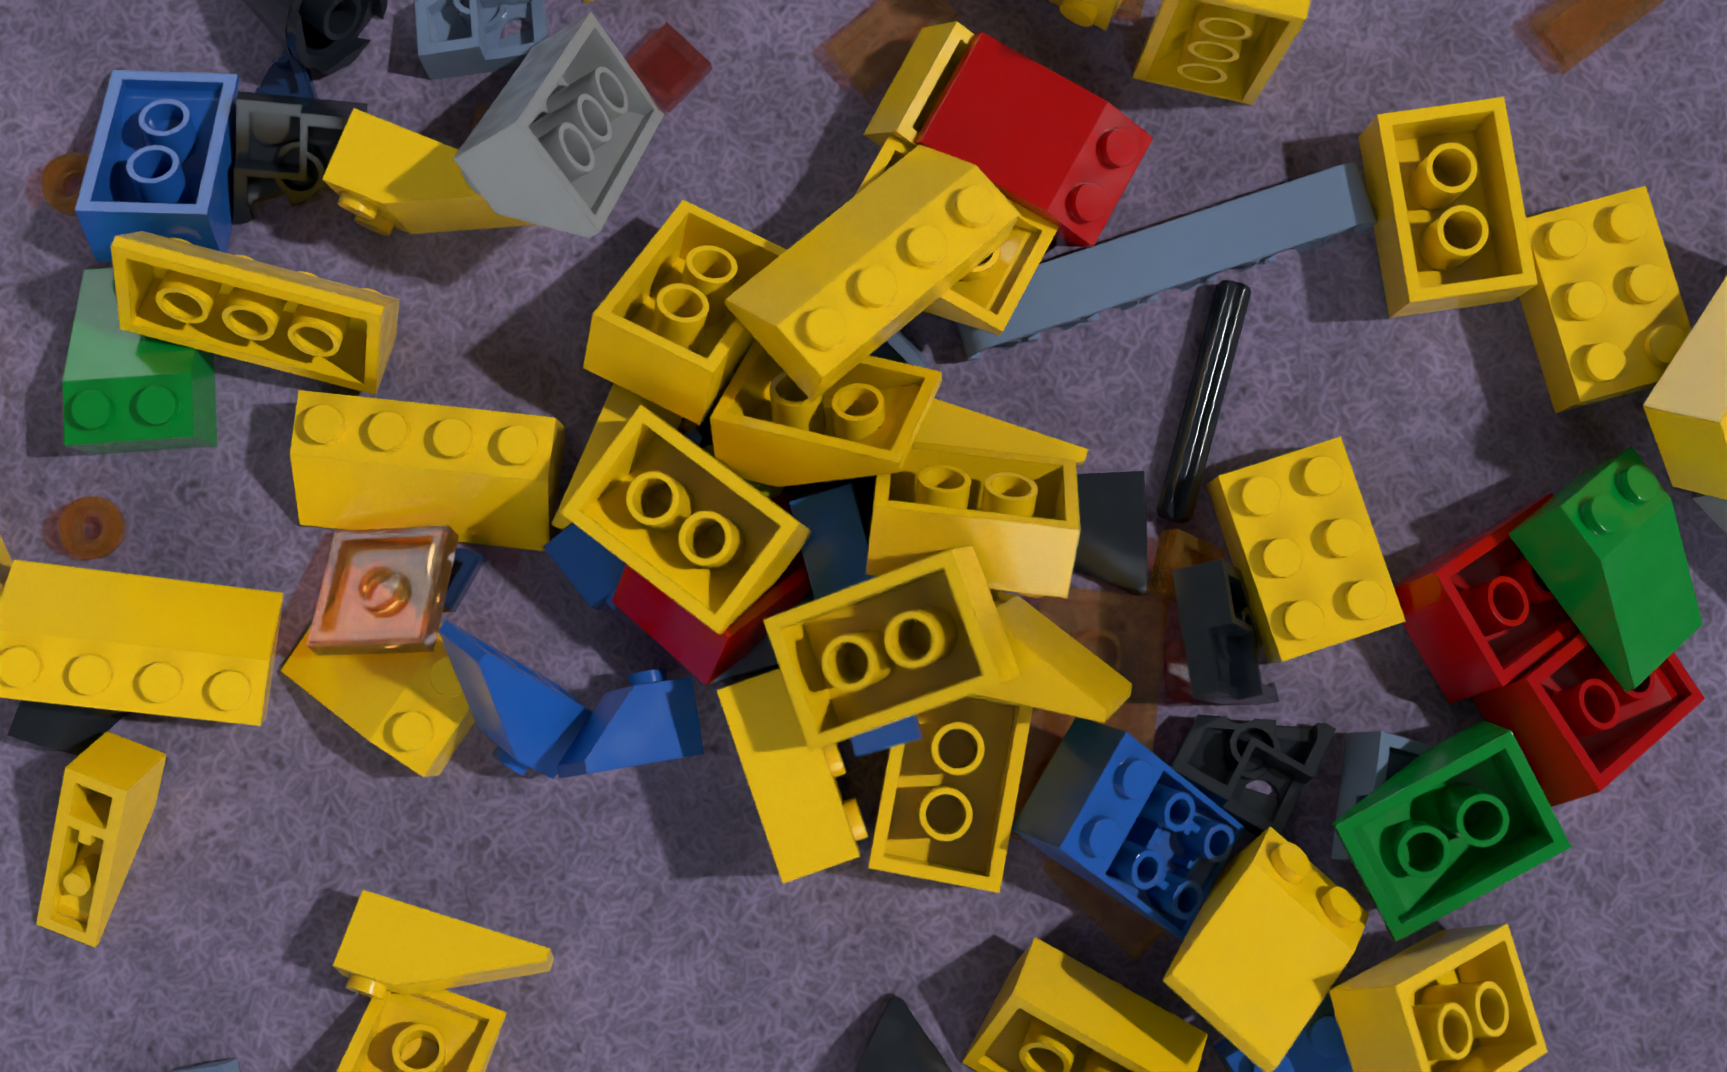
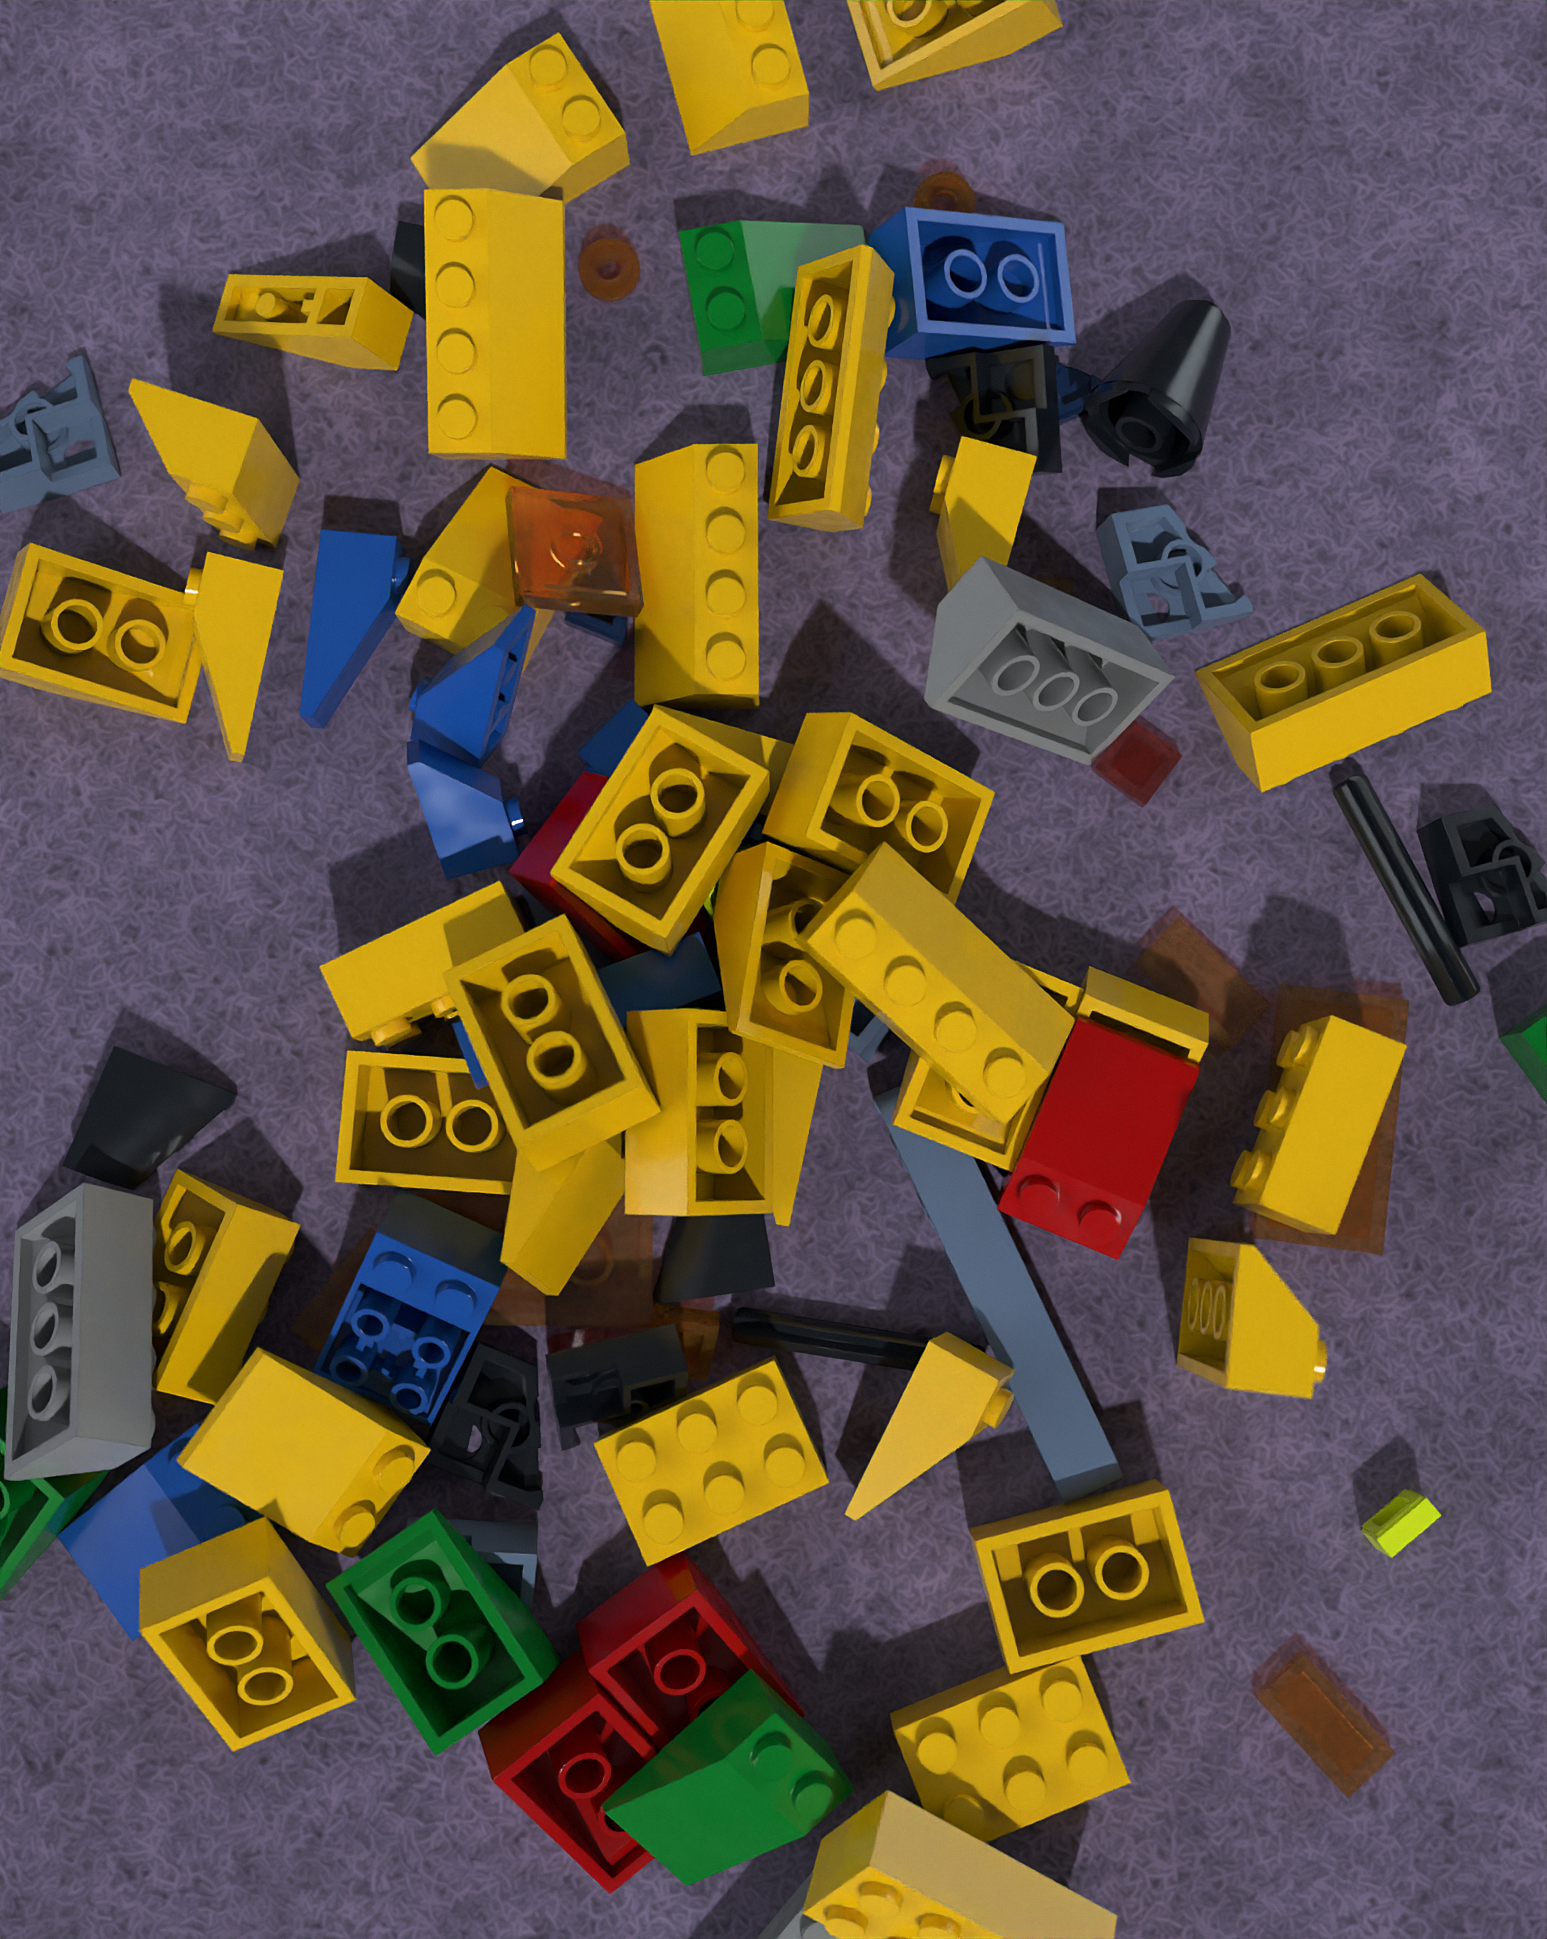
camera: 85 degrees right, 0 degrees up
(239, 937) = (221, 464): none -> yellow slope
(409, 824) = (352, 609): none -> blue slope
(1289, 325) = (943, 1407): none -> yellow slope

